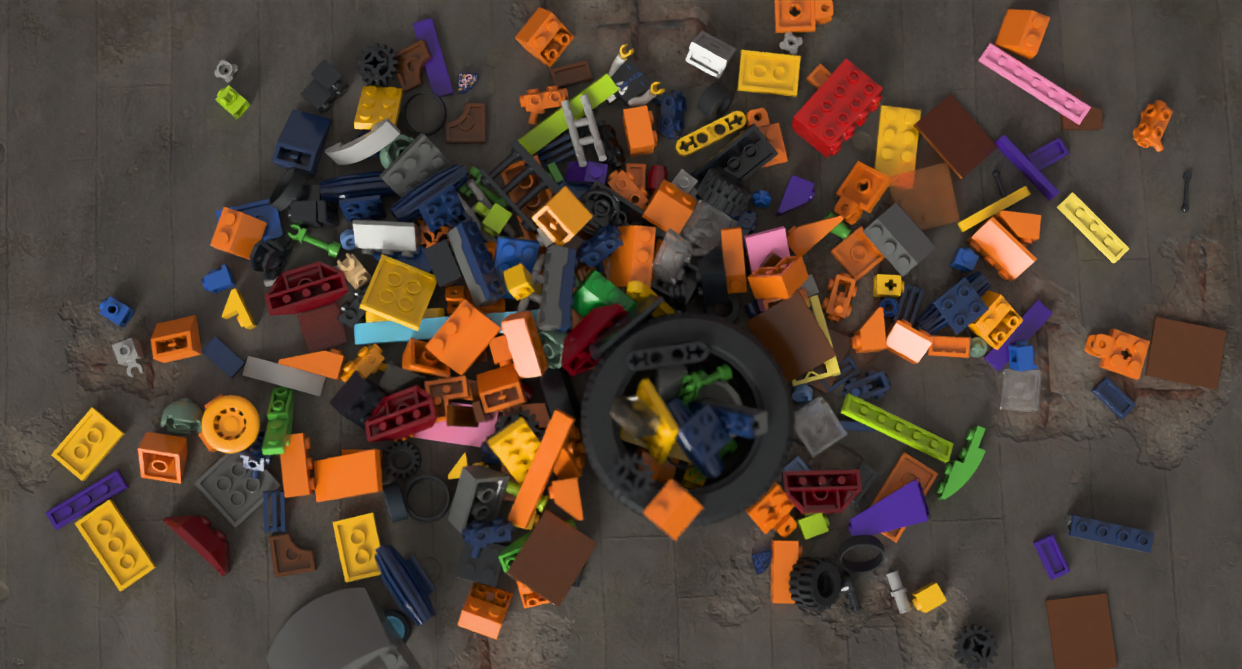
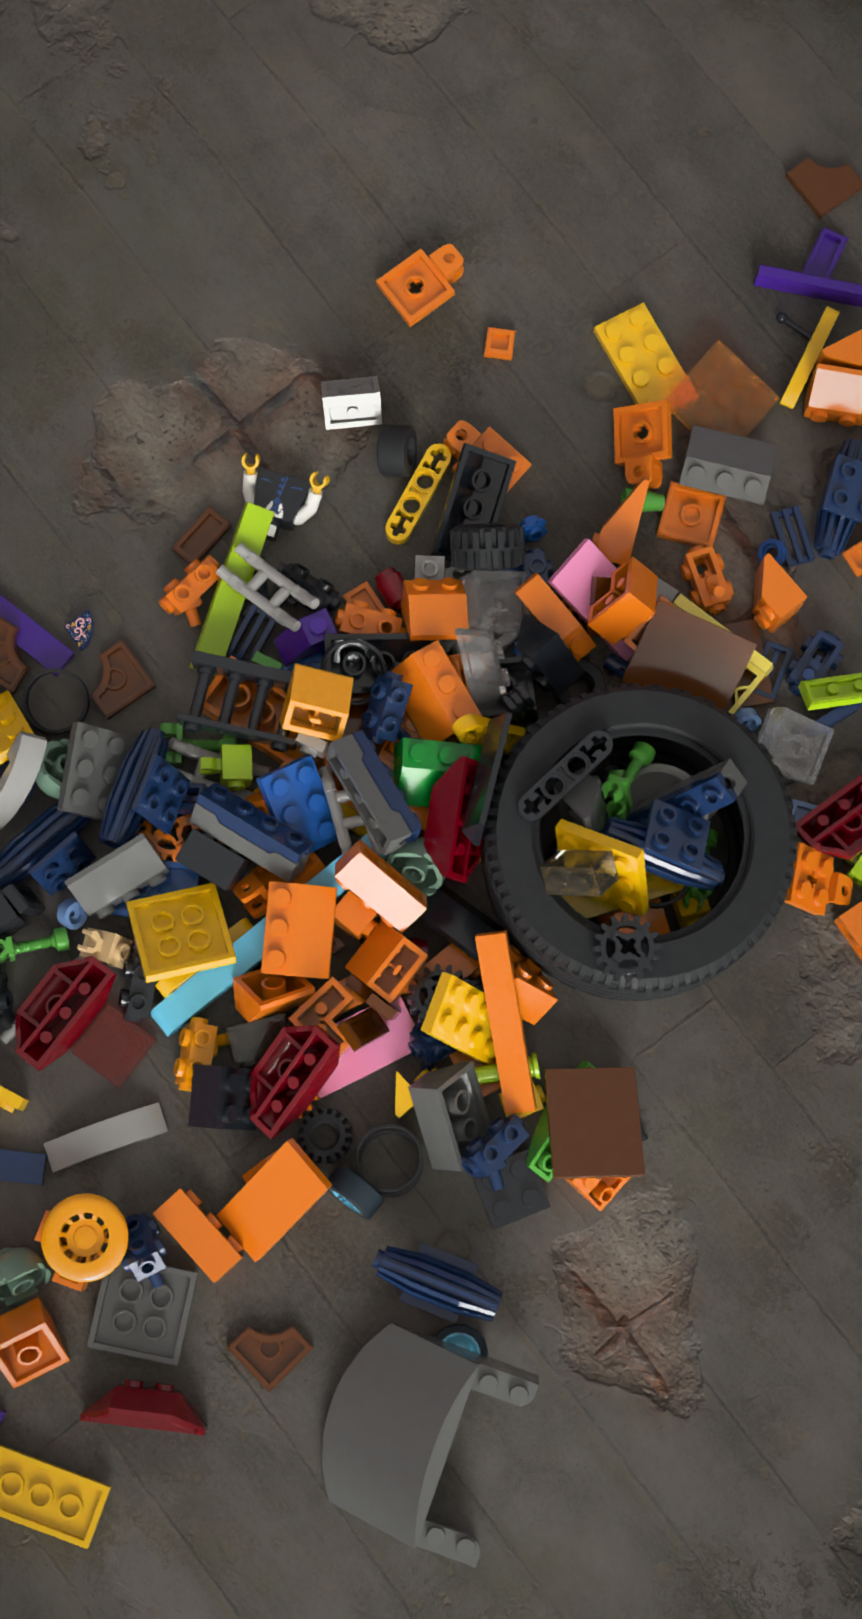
camera: 30 degrees left, 5 degrees down
(274, 527) = (226, 1331): dark blue tile -> none
(280, 421) = (141, 1193): bright green slope -> none
(321, 363) = (142, 1088): orange slope -> none
(357, 542) = (346, 1280): yellow plate -> none
(485, 609) = (556, 1246): orange slope -> none
(519, 282) = (320, 815): yellow brick -> none
(544, 36) = (138, 512): orange slope -> none
(567, 496) = (561, 1035): orange slope -> none
(638, 131) = (332, 545): orange brick -> none
(672, 112) = (354, 497): dark blue brick -> none
(672, 509) = (702, 952): orange slope -> none
(761, 560) = (840, 953): clear blue tile -> none
(768, 73) = (436, 378): yellow plate -> none
(792, 49) = (431, 332): light grey plate -> none
(796, 195) = (570, 496): dark purple slope -> none
(837, 109) = (548, 363): red brick -> none
(880, 290) = (745, 537): yellow brick -> none
(907, 341) = (824, 575): slope -> none
(955, 136) = (706, 304): reddish brown piece -> none
(964, 259) = (818, 439): blue brick -> none
(1022, 32) = (695, 137): orange slope -> none
(1034, 84) = (751, 185): bright pink tile -> none

